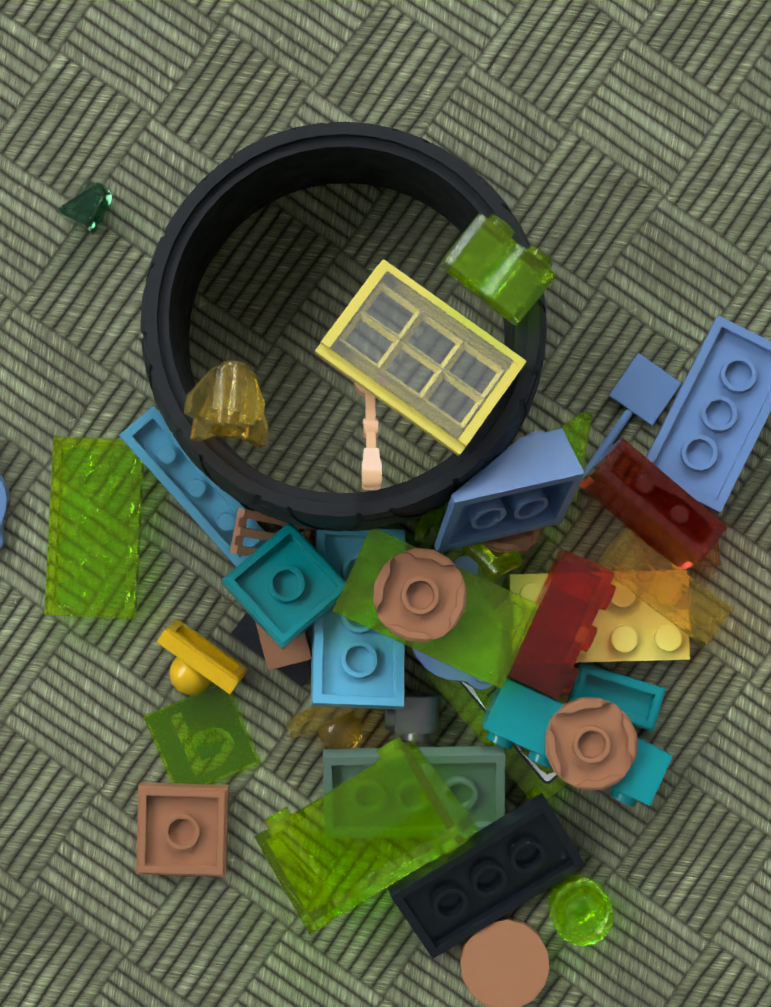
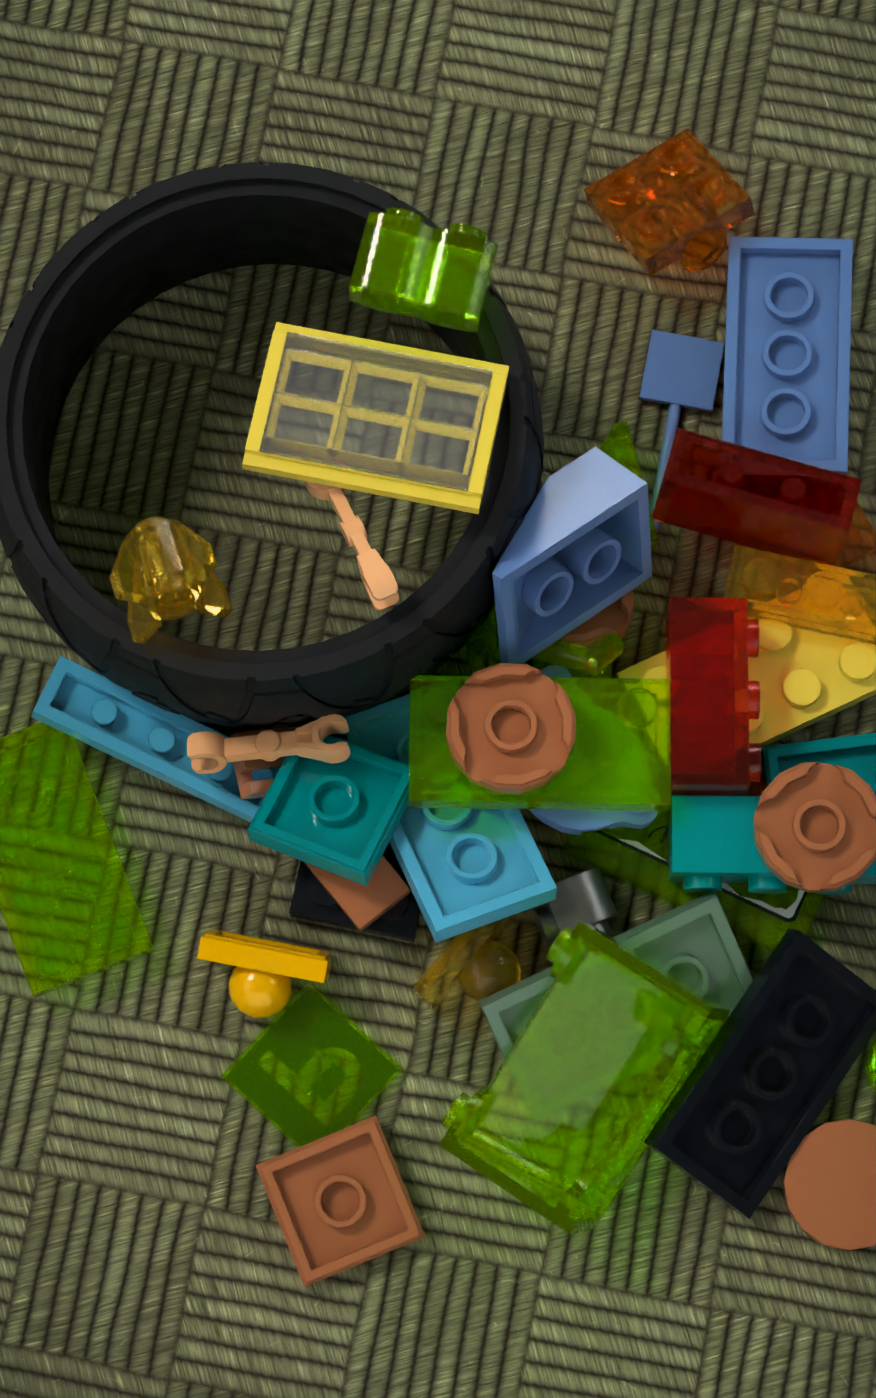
camera: 20 degrees left, 10 degrees down
(224, 516) = (213, 751): none -> light nougat piece
(690, 277) = (671, 205): none -> clear orange plate

